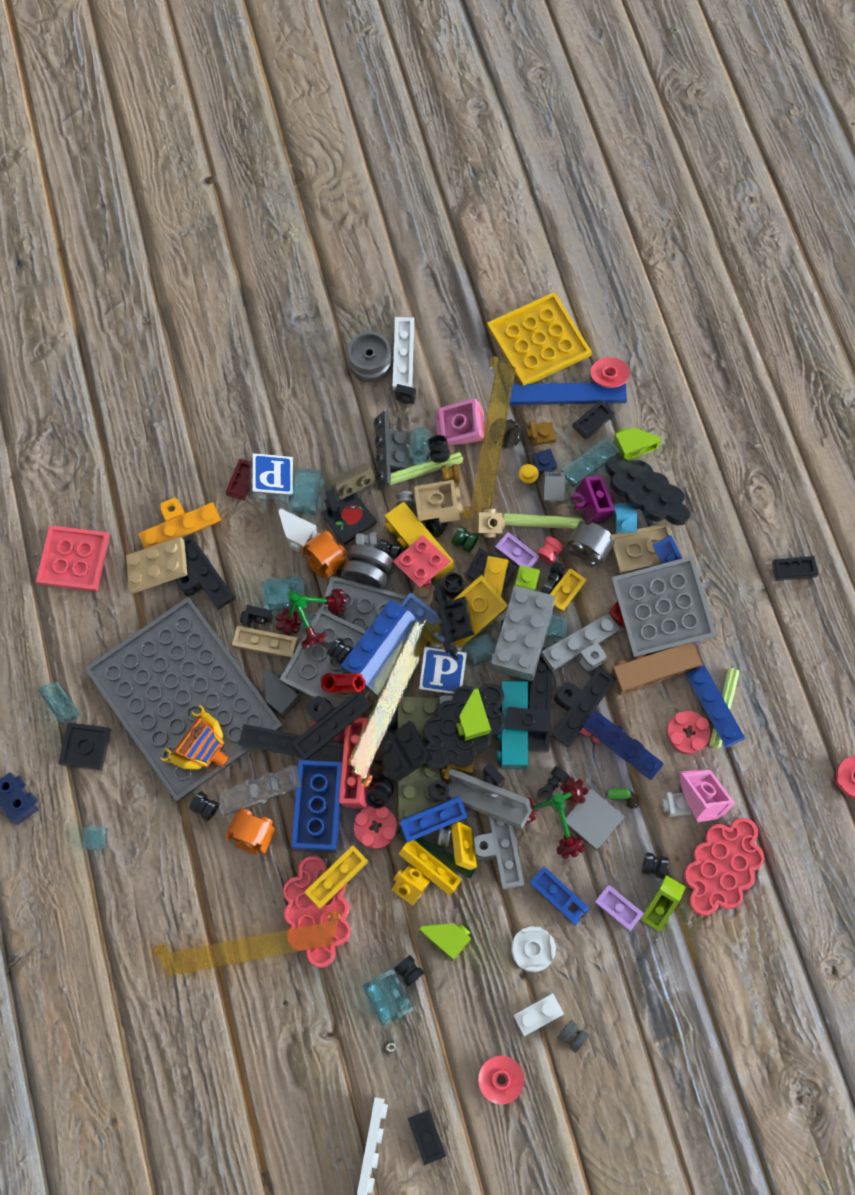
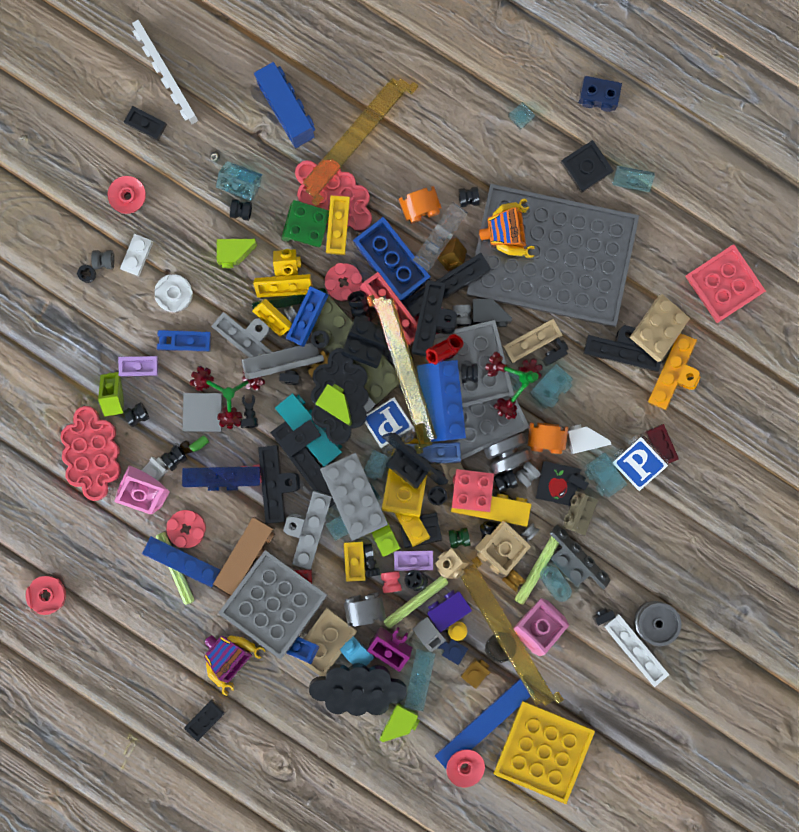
camera: 140 degrees right, 15 degrees up
(261, 765) = (453, 254): none -> pearl gold panel
(285, 1032) = (284, 104): none -> blue brick
(299, 712) = (463, 315): none -> light grey wheel
(364, 906) = (305, 224): none -> green bracket
(438, 447) = (538, 591): black wheel -> none
(522, 492) = (449, 610): none -> dark purple brick
(532, 534) = (412, 578): none -> black wheel
(593, 420) = (446, 717): black plate -> none
(597, 1044) = (88, 279): none -> black bush
(651, 799) = (174, 457): none -> black wheel
(736, 598) = (227, 657): none -> torso

